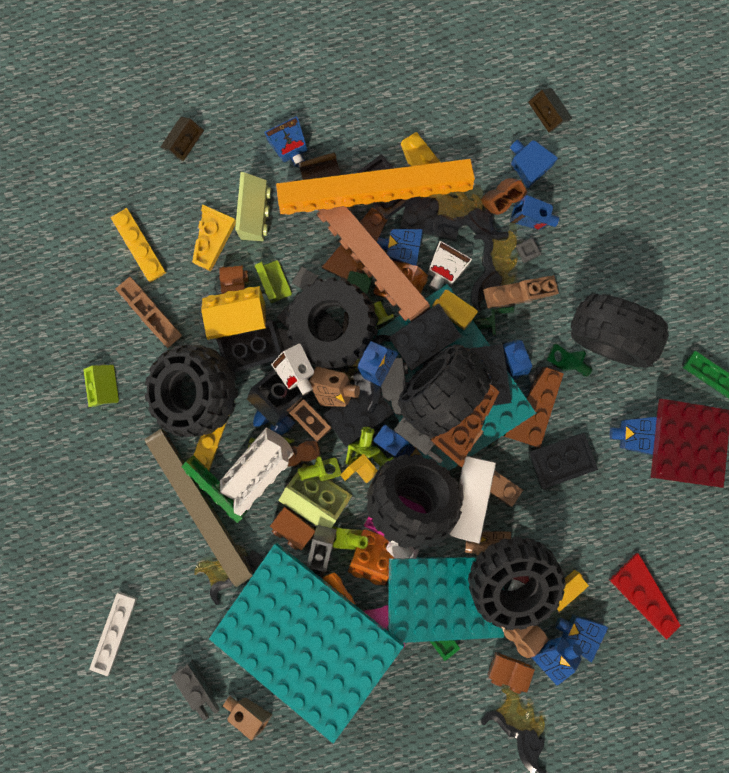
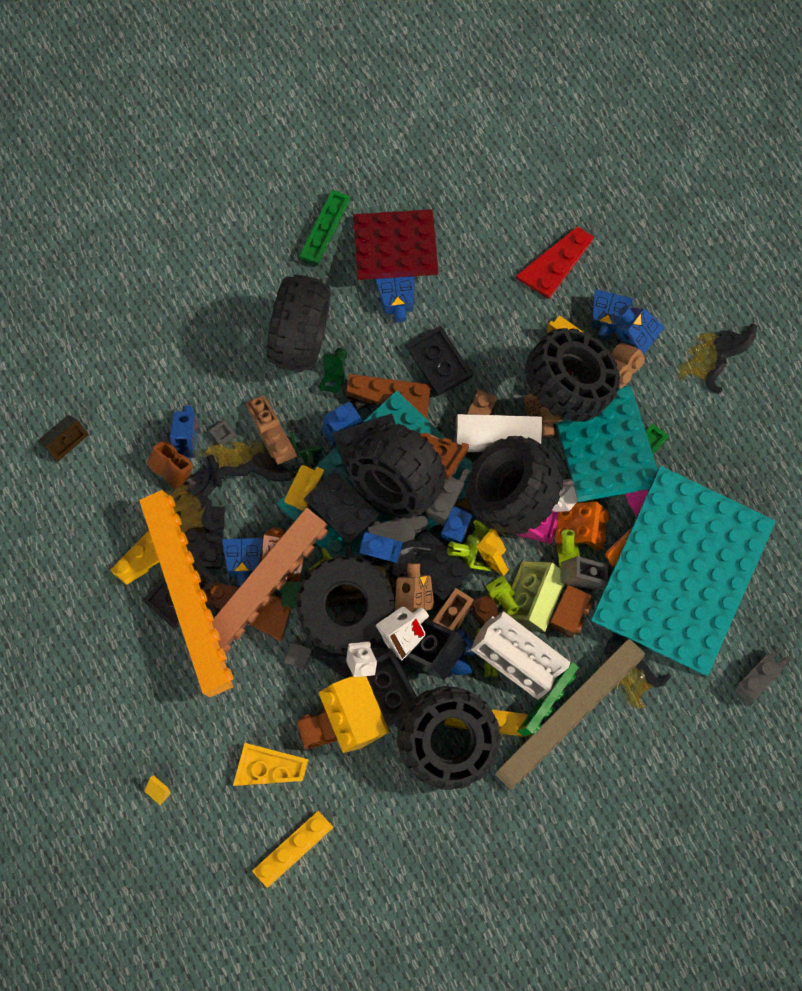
camera: 105 degrees left, 15 degrees down
(100, 385) = (462, 855): lime panel -> none
(113, 634) = (728, 777): white plate -> none
(148, 312) = (367, 818): medium nougat slope -> none
(182, 138) = (158, 827): dark brown panel -> none
(213, 143) = (157, 790): none -> yellow slope
(247, 716) = (777, 607): medium nougat torso -> none
(252, 208) = (229, 724): yellowish green slope -> none
(273, 281) = (305, 689): lime panel -> none
(274, 326) = (361, 659): none -> white brick
(288, 141) = (144, 703): blue torso -> none
(320, 167) = (172, 664): dark brown panel -> none
(447, 266) = (256, 509): white torso -> none
(511, 673) = (663, 372): dark orange brick -> none
(531, 161) = (125, 445): blue torso -> none

